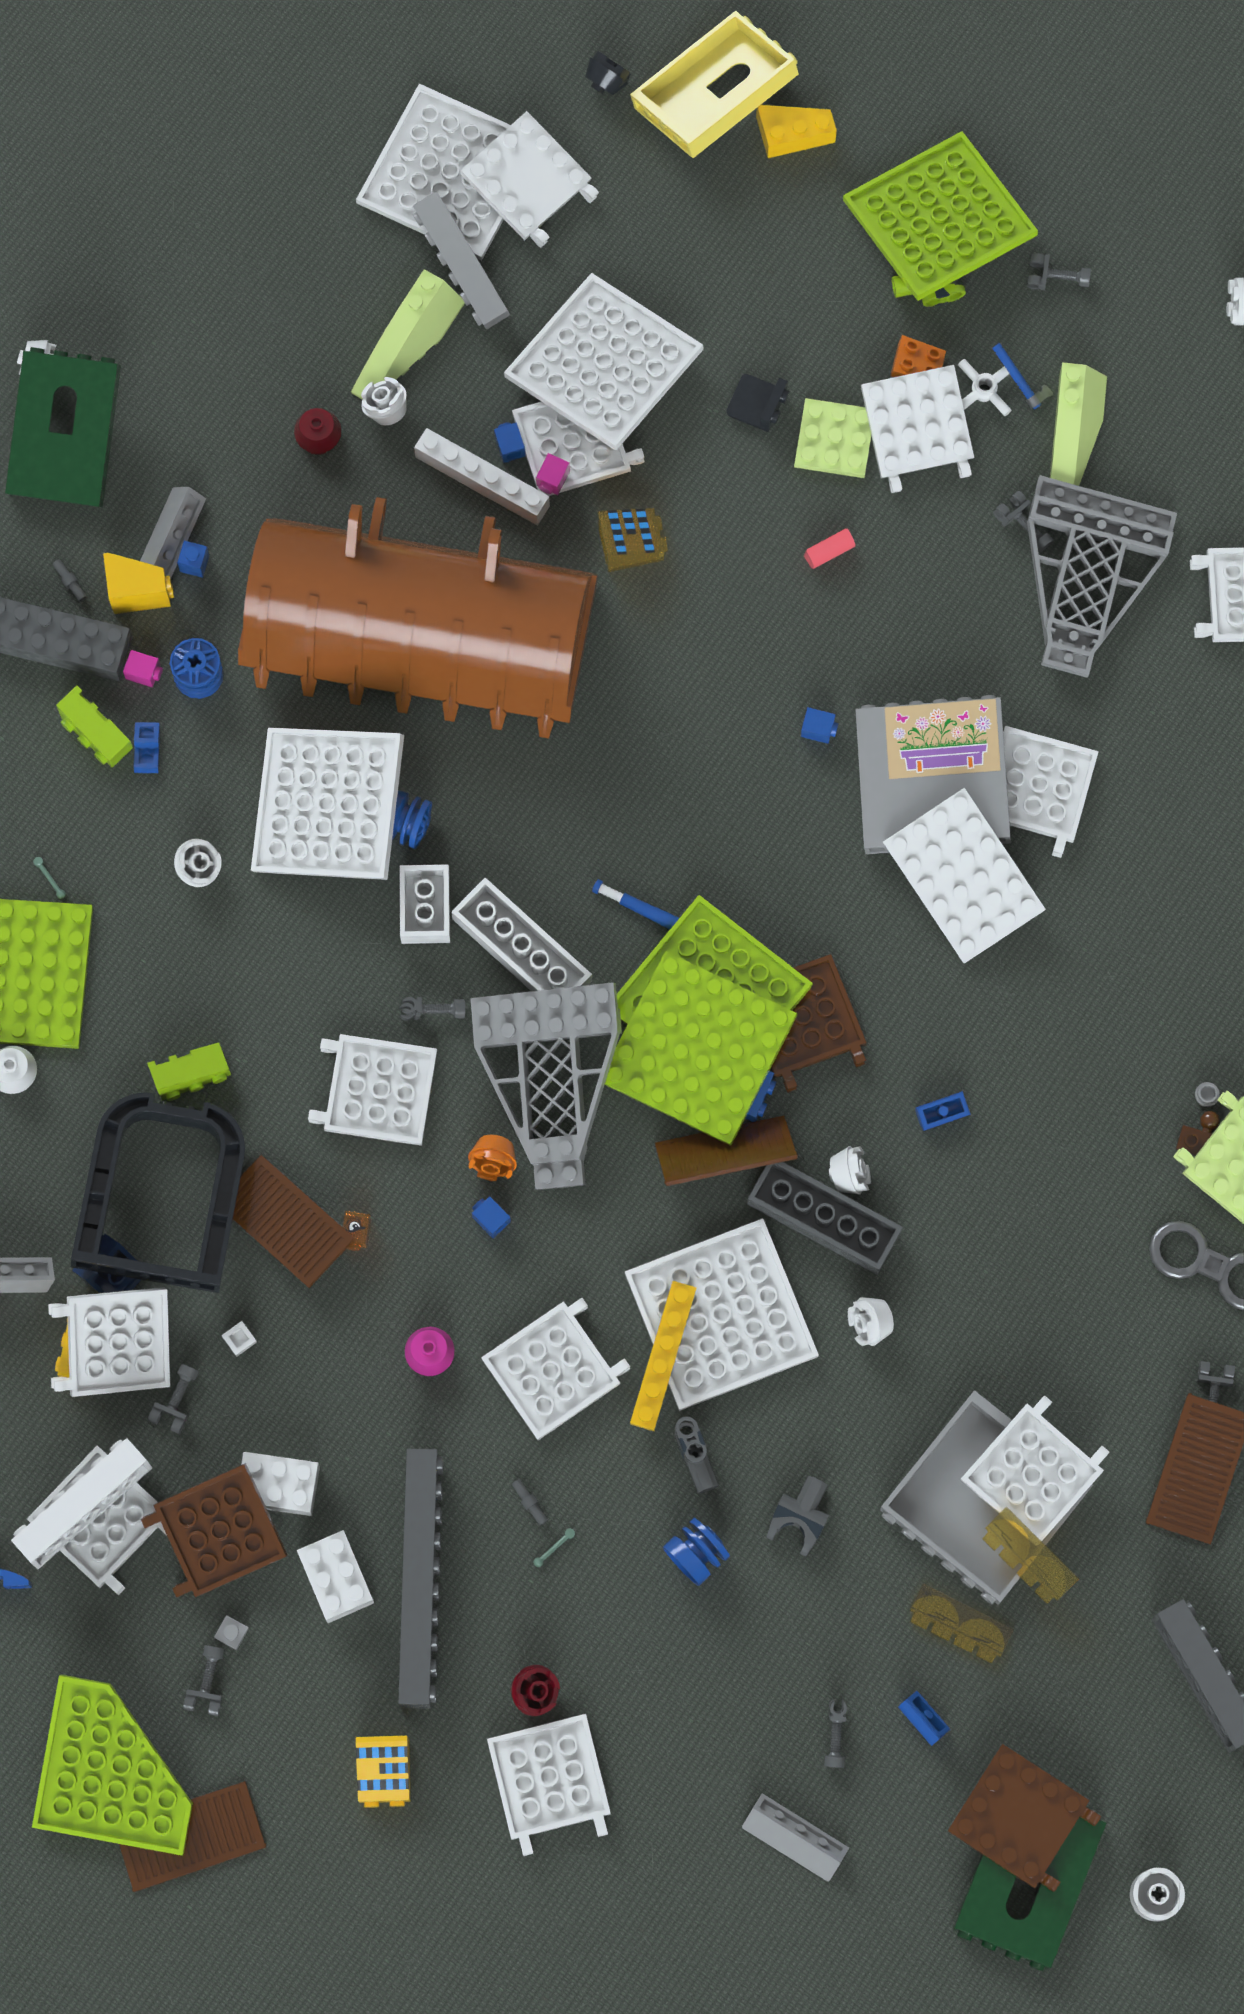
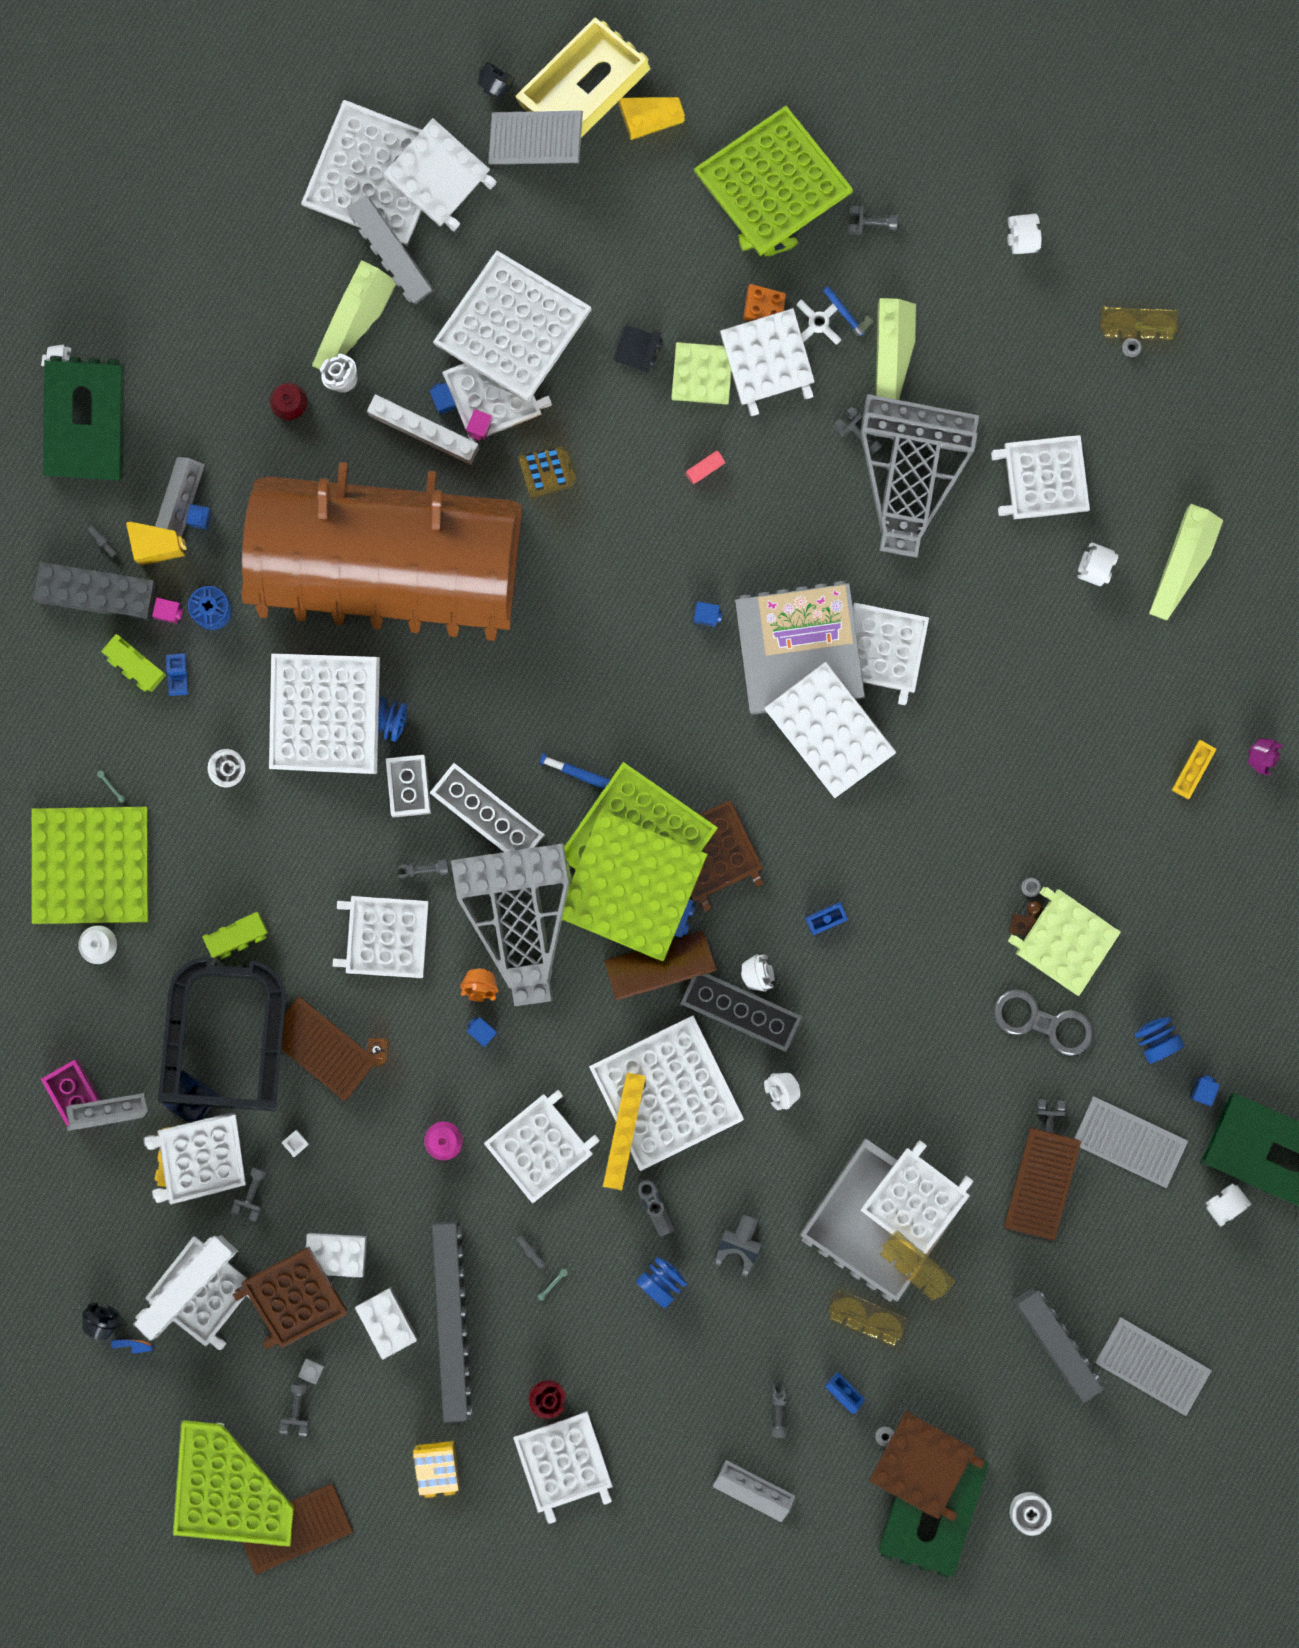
camera: 10 degrees left, 10 degrees up
(651, 142) = (535, 137): none -> light grey window
(965, 1775) = (880, 1432): none -> light grey plate

